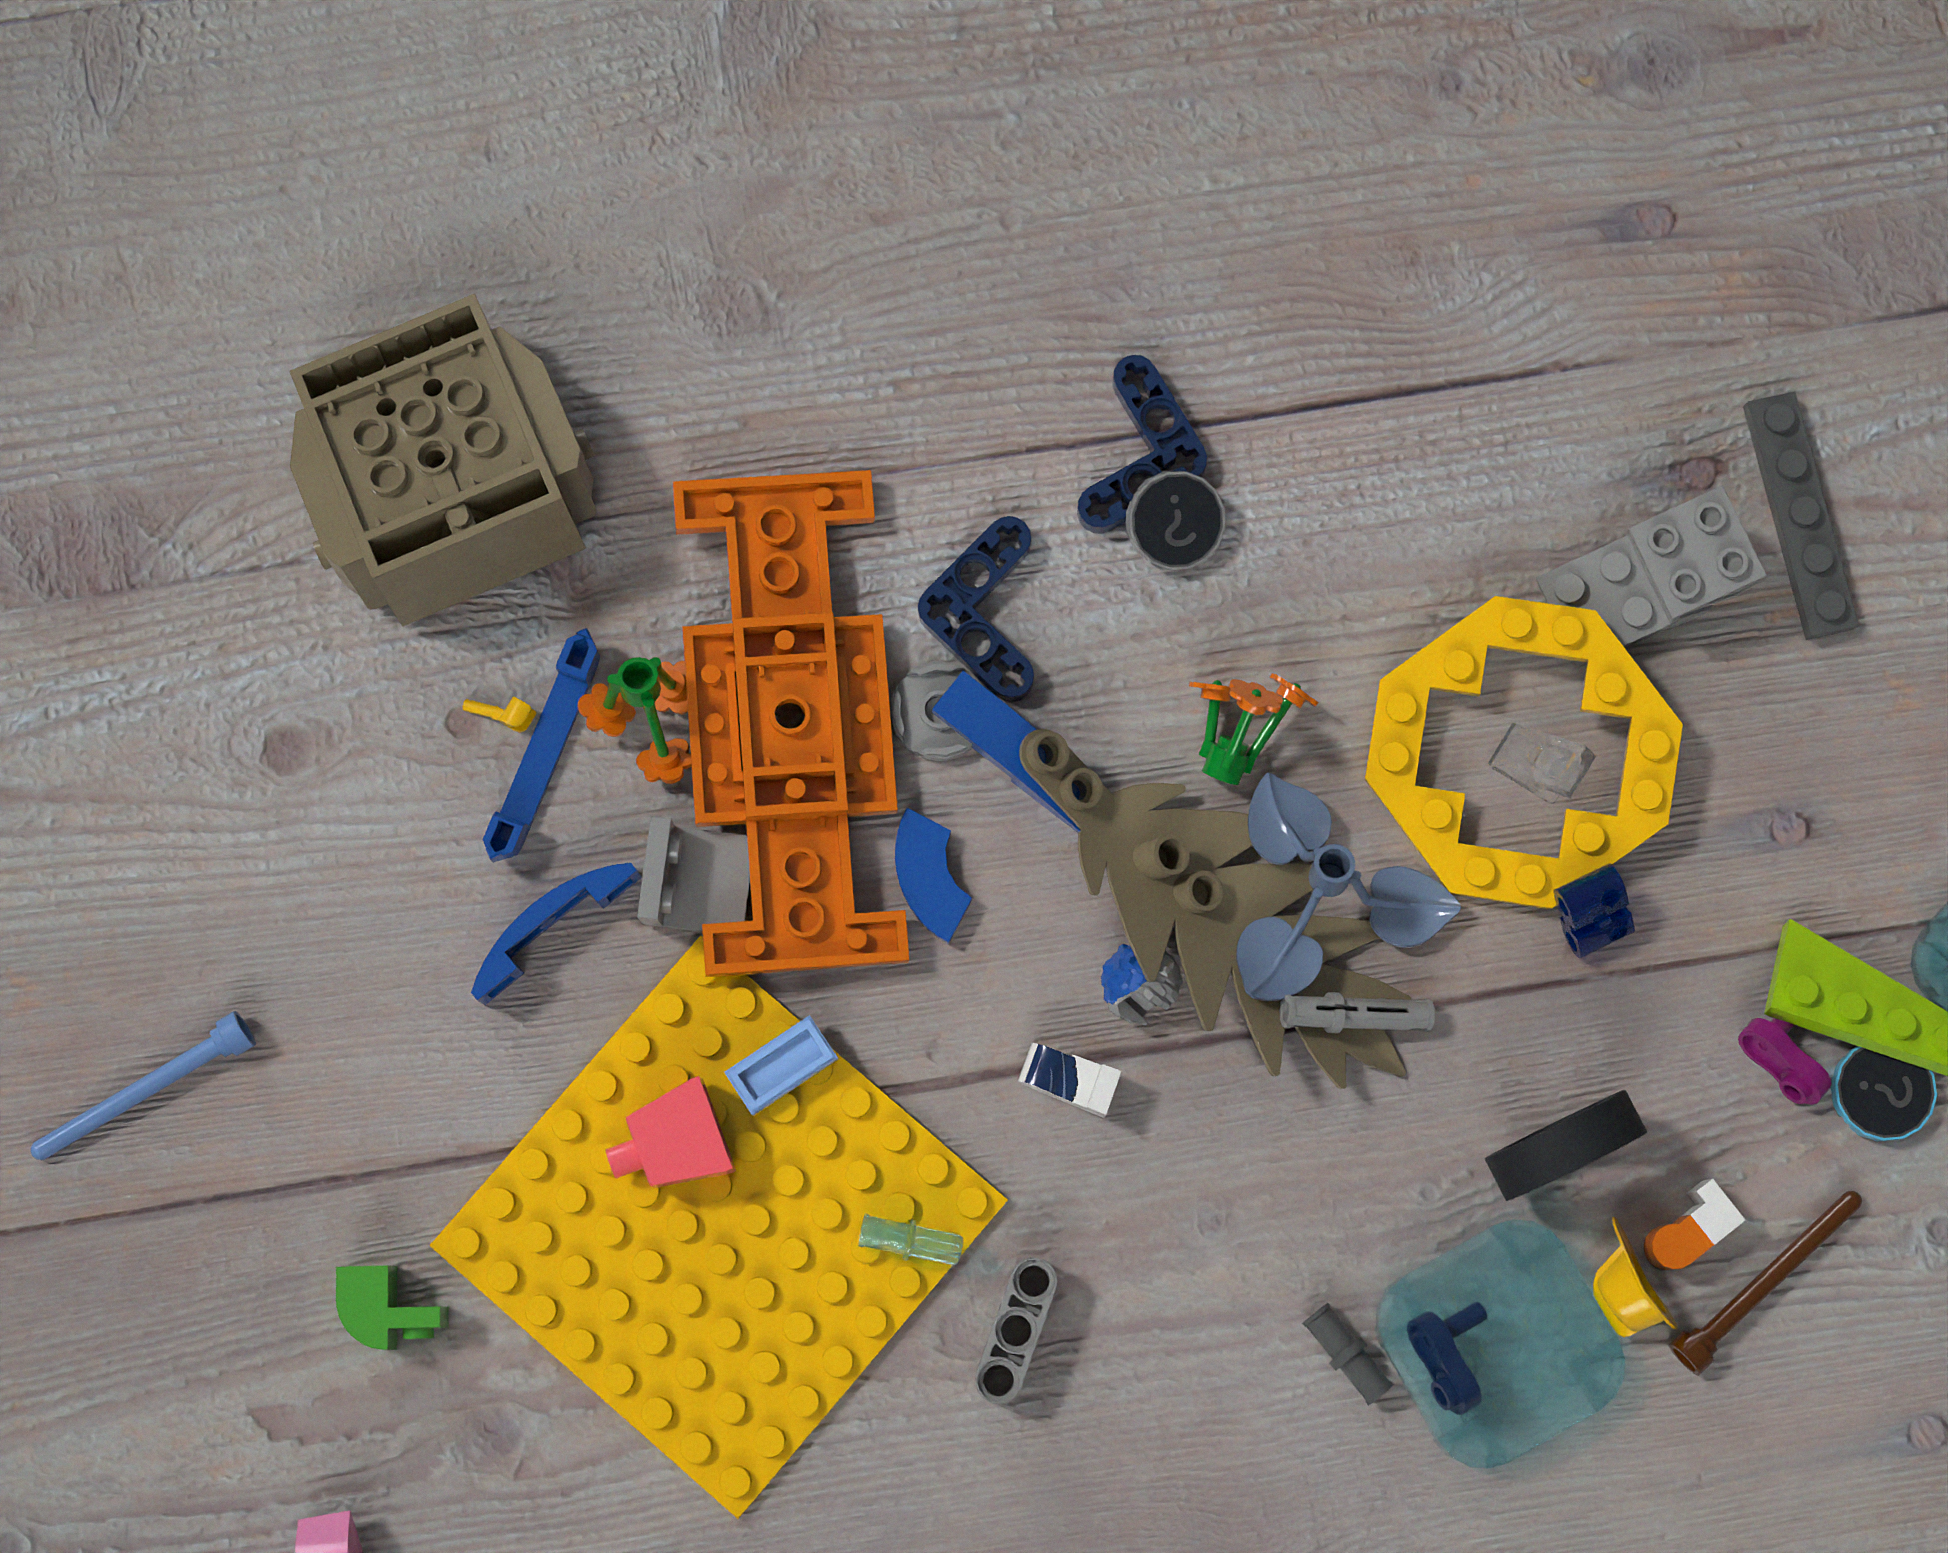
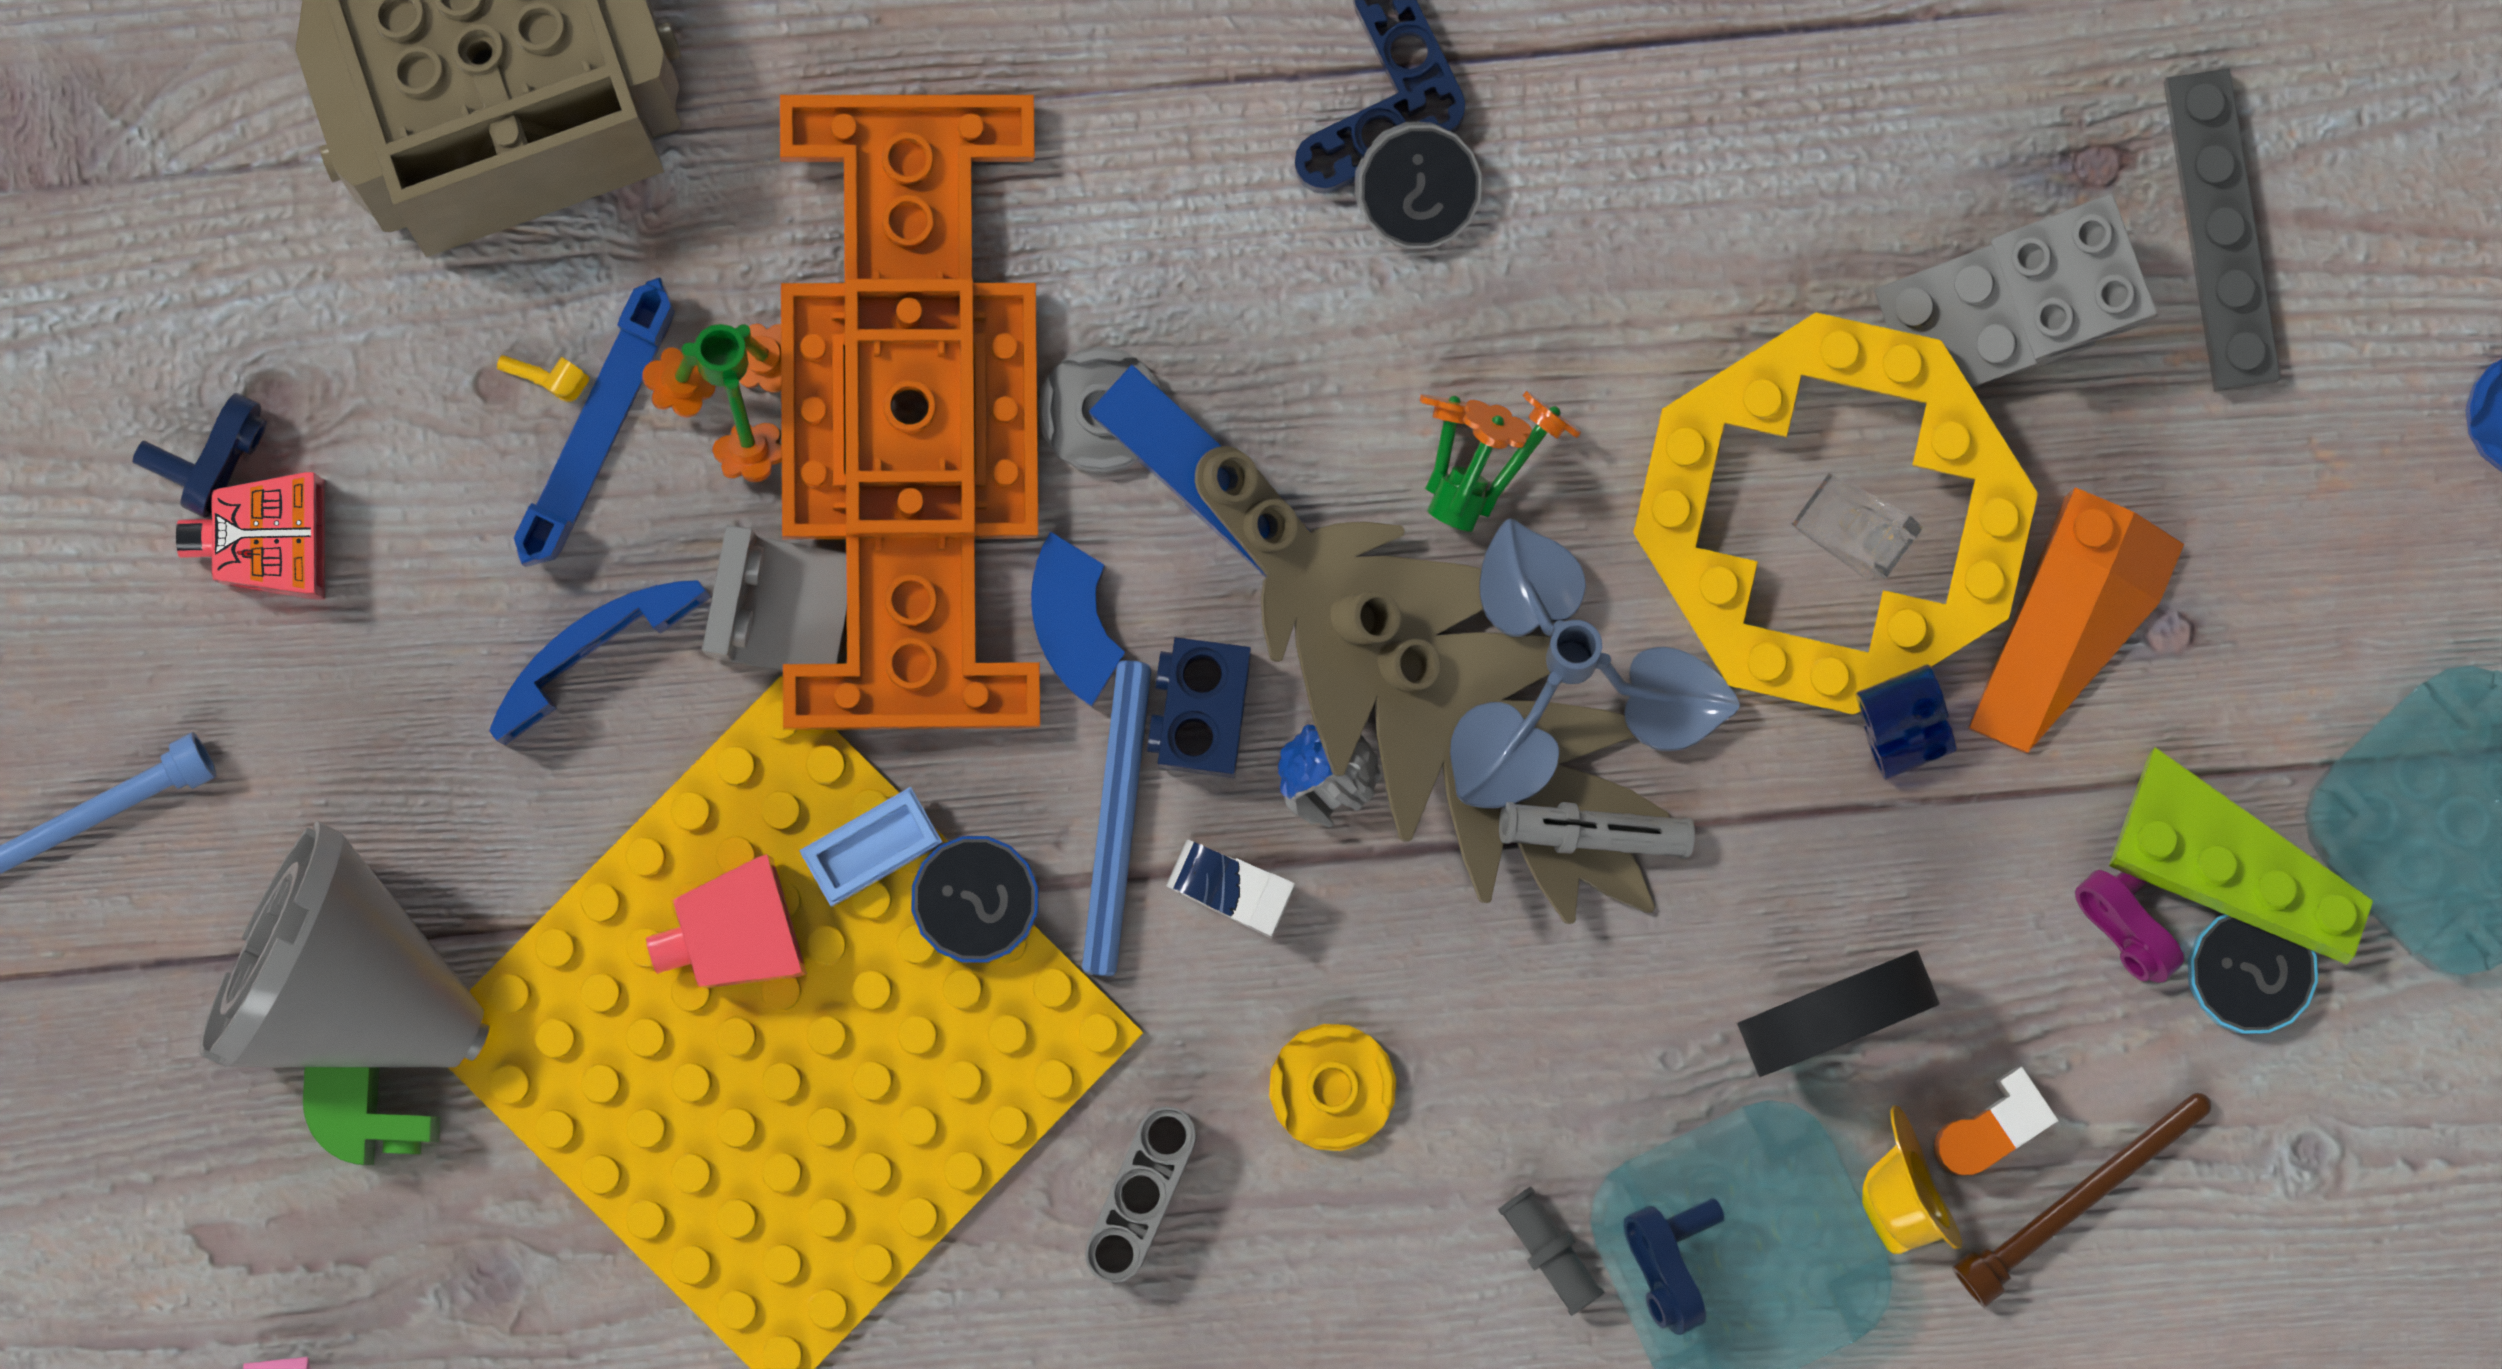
camera: 10 degrees right, 5 degrees up
(236, 812) = (234, 432): none -> dark blue piece
(284, 851) = (264, 536): none -> coral torso
(360, 1198) = (338, 975): none -> light grey cone
(866, 1101) = (975, 899): none -> black tile
(910, 1240) = (1017, 1074): clear light blue axle -> none
(966, 599) = (1144, 269): dark blue beam -> none
(974, 1030) = (1116, 818): none -> medium blue axle
(1048, 938) = (1217, 709): none -> dark blue brick
(1161, 1233) = (1332, 1087): none -> yellow tile
(1721, 808) = (2082, 603): none -> orange wedge

